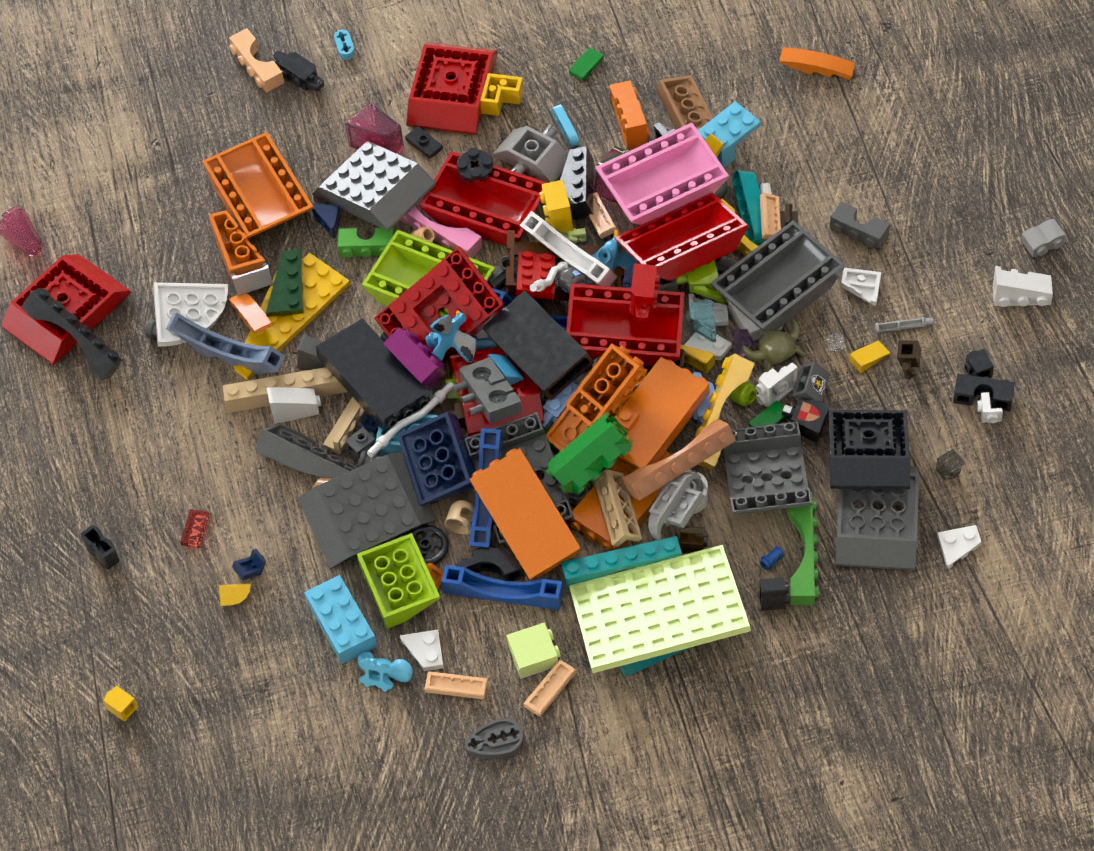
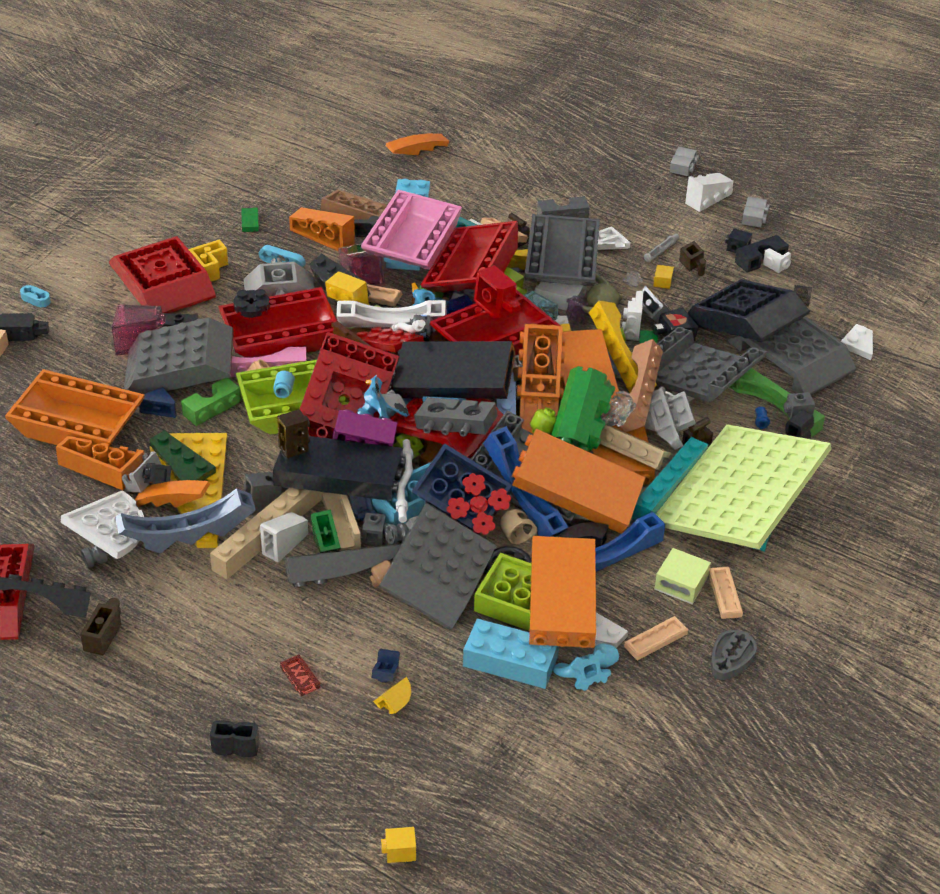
camera: 50 degrees left, 15 degrees down
(105, 395) = (101, 627): none -> dark brown brick
(255, 288) = (156, 473): none -> black bracket
(321, 423) = (324, 531): none -> green slope
(349, 325) = (293, 433): none -> dark brown brick
(410, 599) = (563, 592): none -> orange brick
(413, 267) = (283, 384): none -> medium azure brick
(432, 481) = (478, 504): none -> red plant
(559, 439) = (543, 420): none -> lime head
(626, 470) = (620, 409): none -> clear plate
(796, 571) = (798, 402): none -> dark grey brick
(1037, 341) = (755, 212): none -> light grey brick

